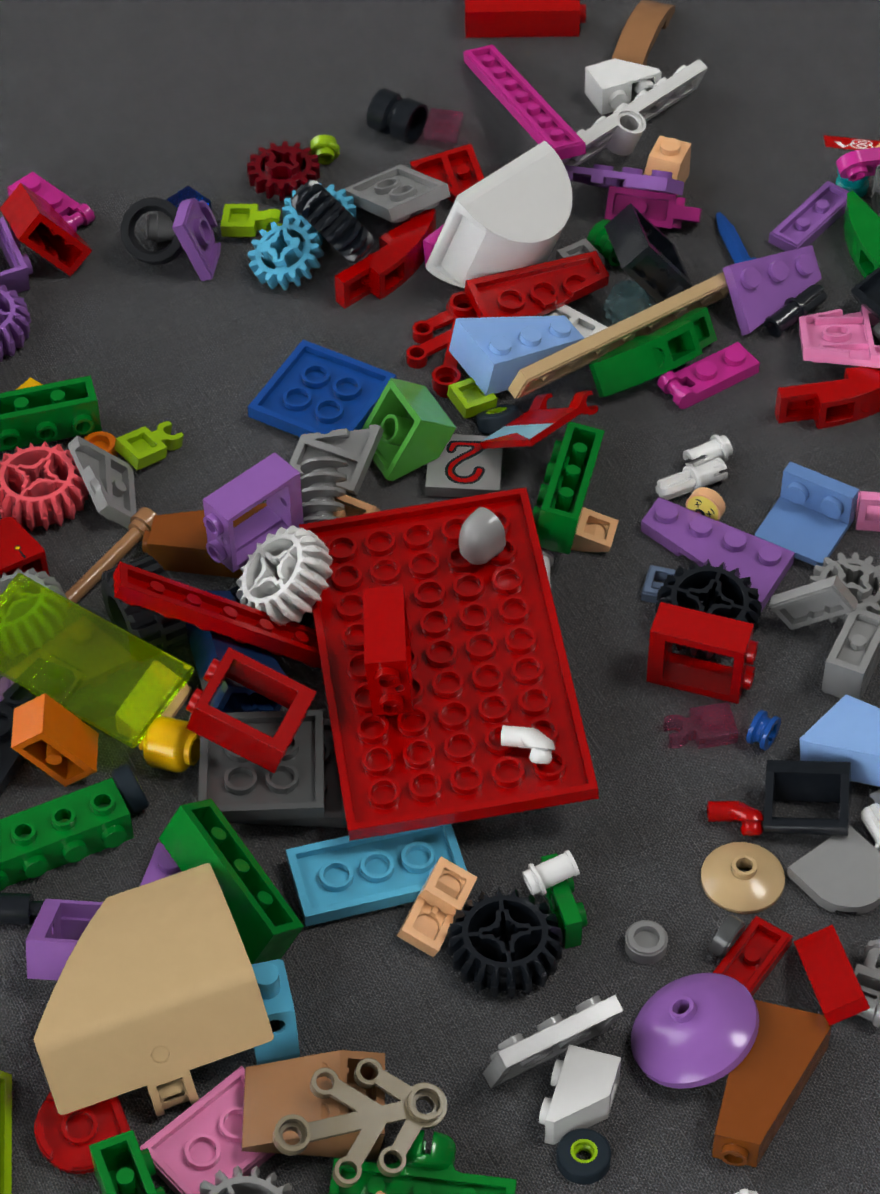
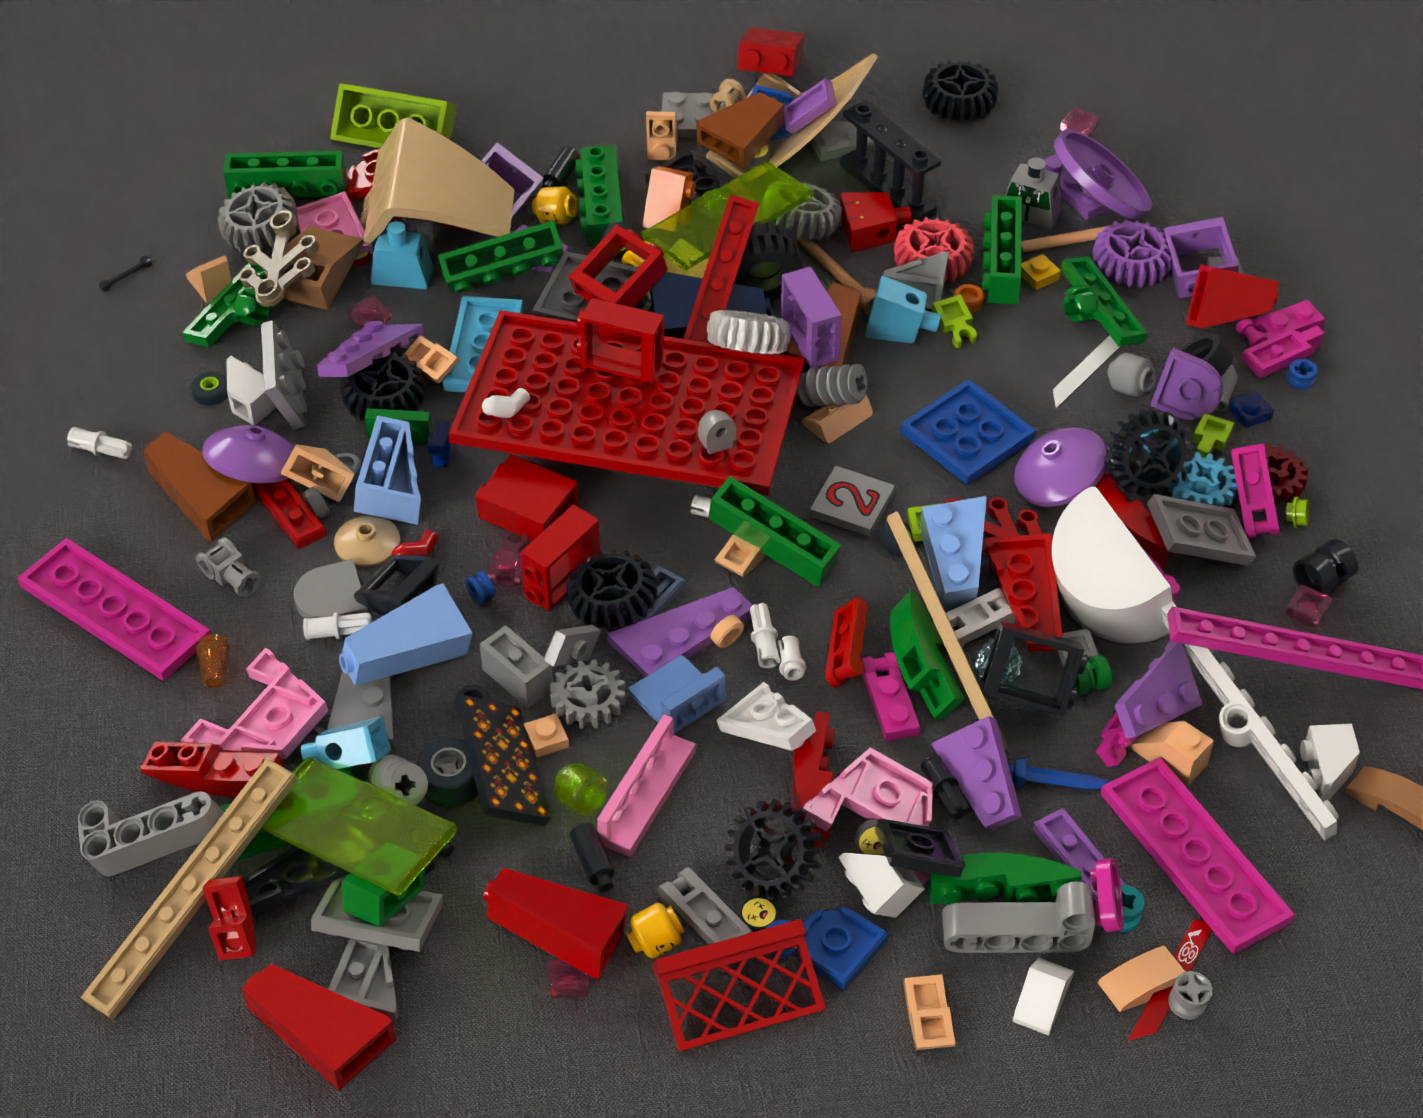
camera: 110 degrees right, 0 degrees up
(75, 336) = (1096, 299): none -> green plate
(85, 876) = (555, 205): none -> yellow head
(96, 191) = (1282, 350): none -> dark pink hinge
(120, 178) = (1302, 381): none -> blue bush
(164, 336) = (1084, 370): none -> white sticker
(168, 473) = (899, 313): none -> medium azure torso
(184, 287) = (1132, 374): none -> light grey head
(325, 163) = (1255, 489): none -> dark pink plate
(346, 325) = (1060, 466): none -> medium lavender dish
(353, 446) = (886, 416): light grey wing -> none
(365, 1025) = (369, 310): none -> clear pink plate
(413, 428) = (895, 460): bright green slope -> none
(455, 167) = (1230, 595): red wing -> none
(457, 965) = (366, 345): none -> medium lavender wing
(539, 422) = (859, 538): red flag -> none
(550, 873) = (406, 400): white pin -> none
(575, 838) = (439, 444): none -> clear blue plate
(619, 727) = (525, 497): none -> red brick
(649, 872) = (388, 474): none -> light blue wedge
(667, 412) = (846, 643): none -> red plate
(680, 946) = (319, 469): none -> light nougat slope
(766, 148) = (1197, 855): none -> dark pink plate
(810, 428) = (767, 719): none -> white wing
(831, 975) = (240, 534): red tile -> none

